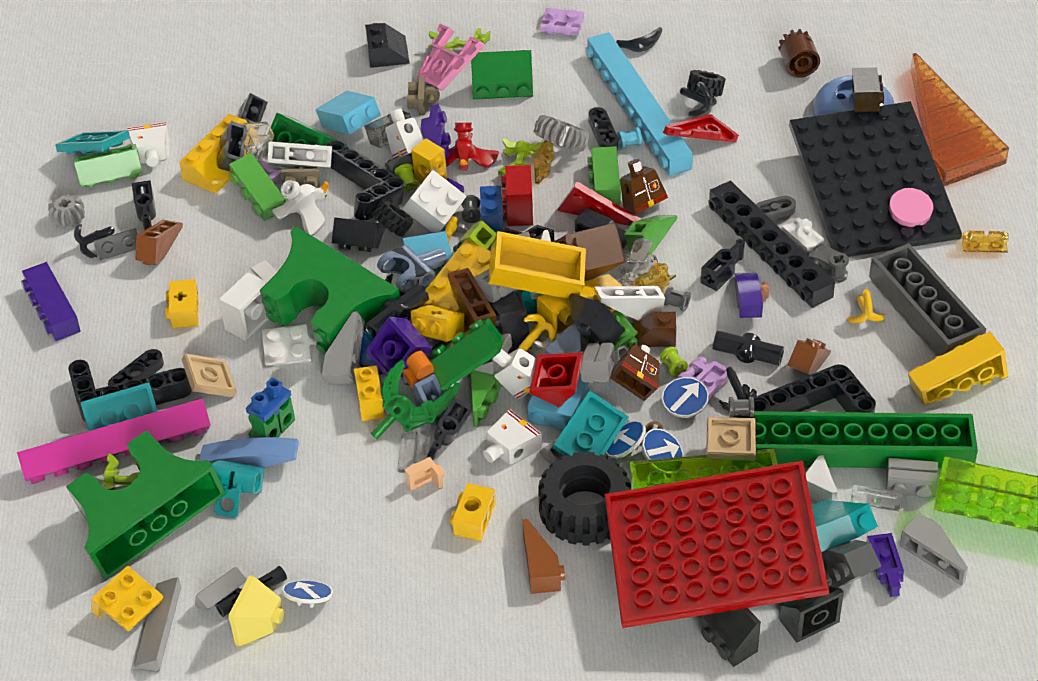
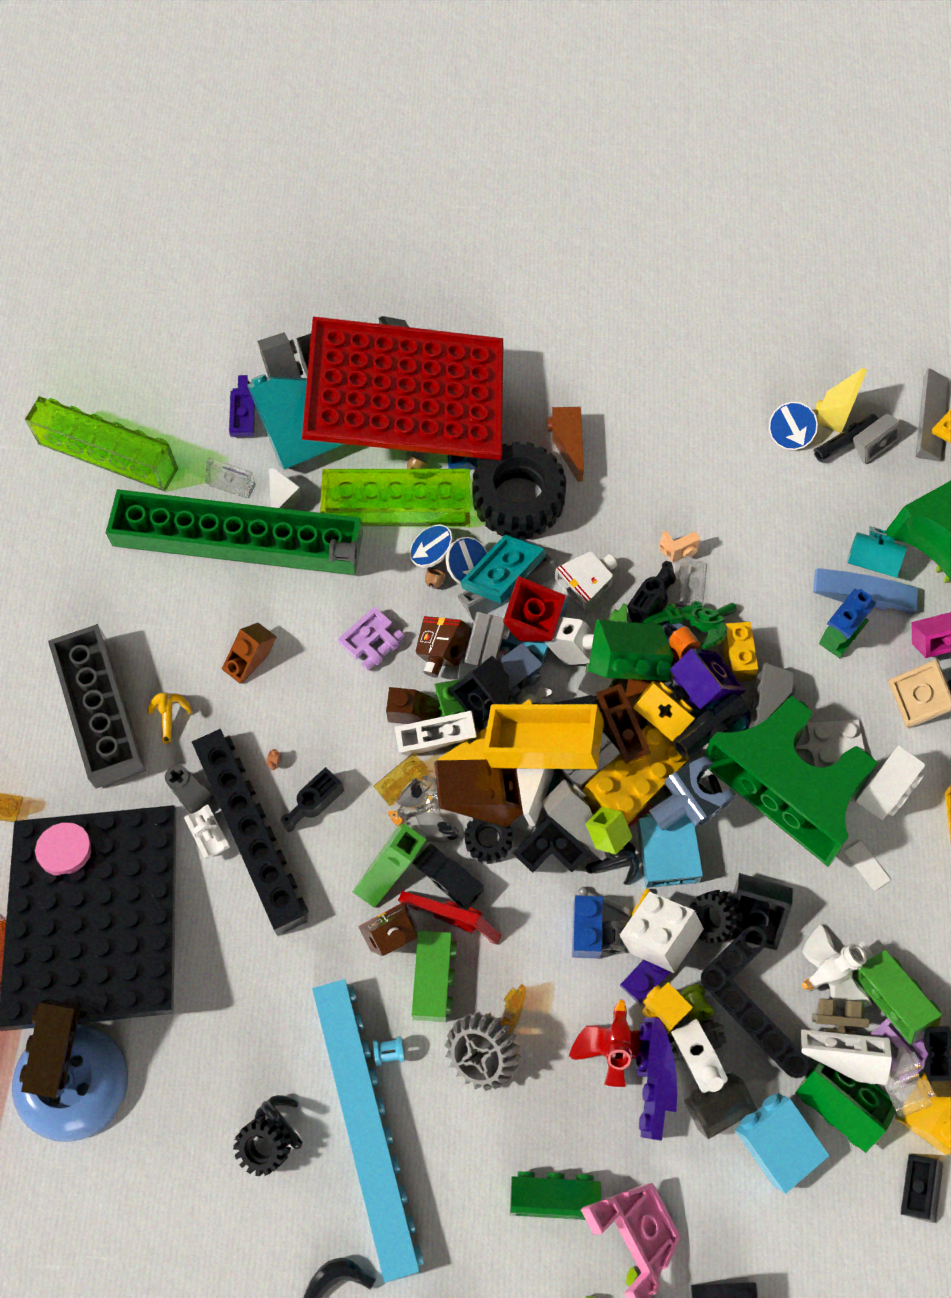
camera: 175 degrees left, 20 degrees up
(419, 95) = (677, 1171): dark tan hips -> none
(473, 511) = (631, 484): yellow brick -> none
(517, 195) = (550, 935): red brick -> none
(521, 149) = (538, 1044): lime piece -> none
(536, 330) = (552, 698): yellow piece -> none
(602, 136) = (411, 1060): black beam -> none
(673, 361) = (398, 663): lime bush -> none
(677, 298) = (378, 755): dark grey bush -> none
(685, 397) = (395, 609): blue piece -> none
(702, 127) = (281, 1050): red wing -> none
(730, 438) = (362, 522): tan tile -> none
(740, 391) = (335, 603): black piece -> none
(748, 295) = (293, 752): dark purple slope -> none
(748, 348) = (312, 673): black piece -> none
(778, 207) = (228, 891): dark grey plate -> none
(799, 53) = (113, 1197): reddish brown gear -> none
(818, 388) = (261, 598): black beam -> none
(912, 477) = (184, 484): light grey brick -> none
(930, 544) = (199, 423): light grey slope -> none
(960, 369) = (92, 605): yellow wedge -> none

